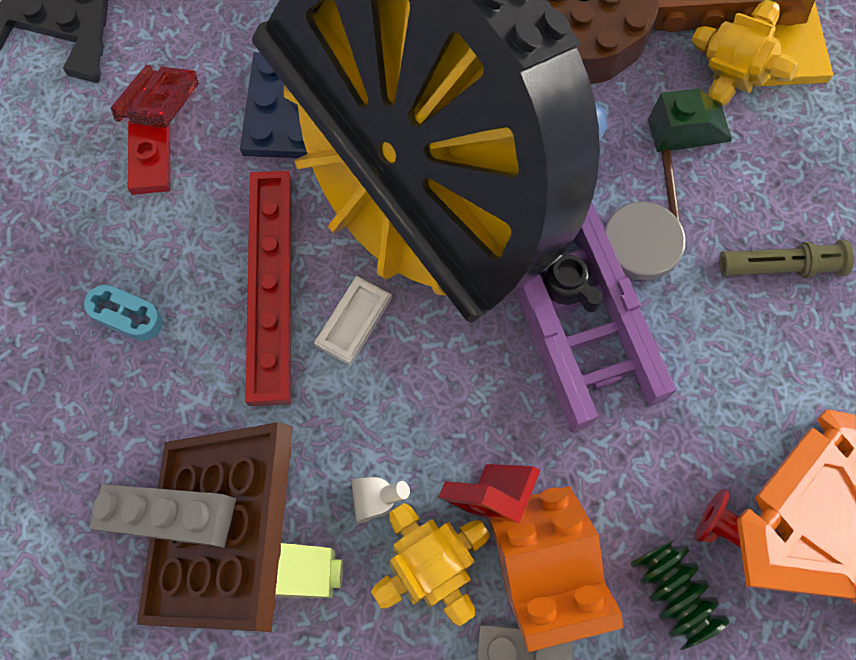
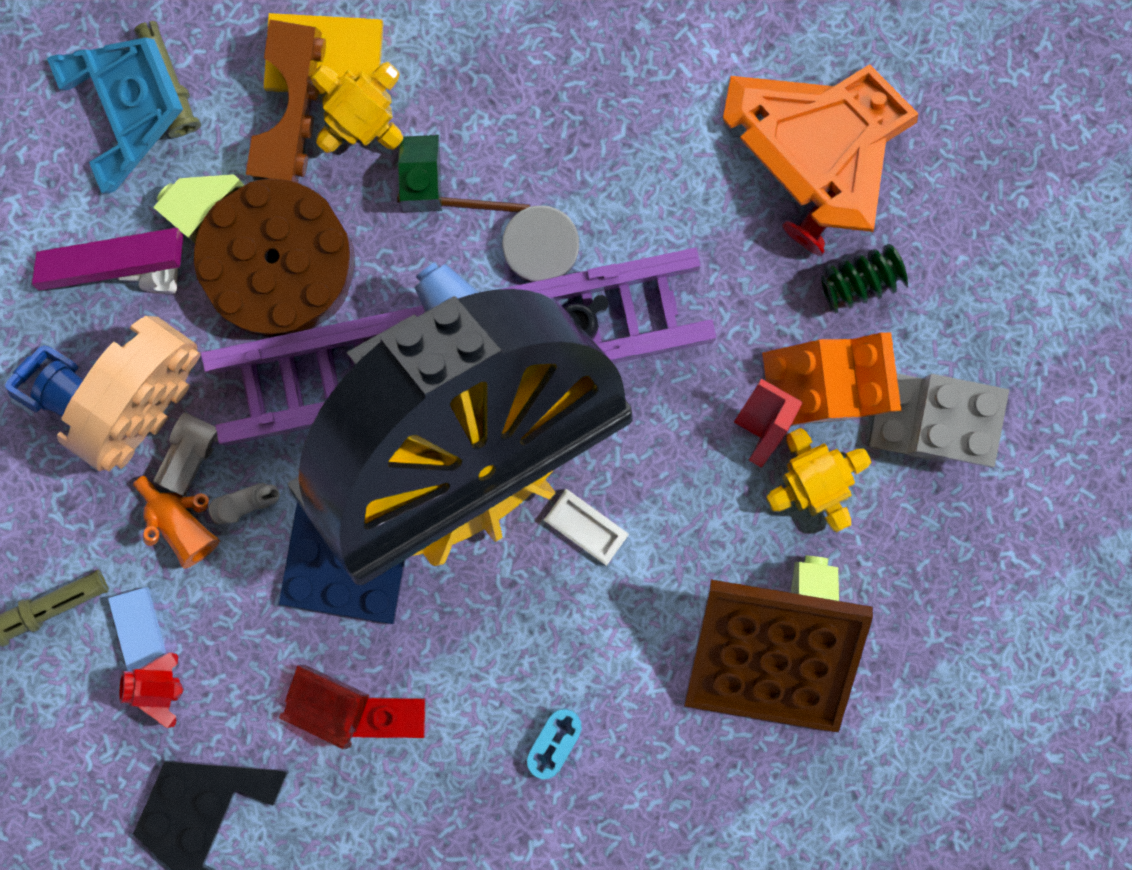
camera: 80 degrees left, 15 degrees up
(164, 514) = (758, 702): light grey plate -> none
(269, 289) = (543, 602): red plate -> none
(376, 497) = (756, 521): white piece -> none
(804, 259) = (577, 98): olive pin -> none

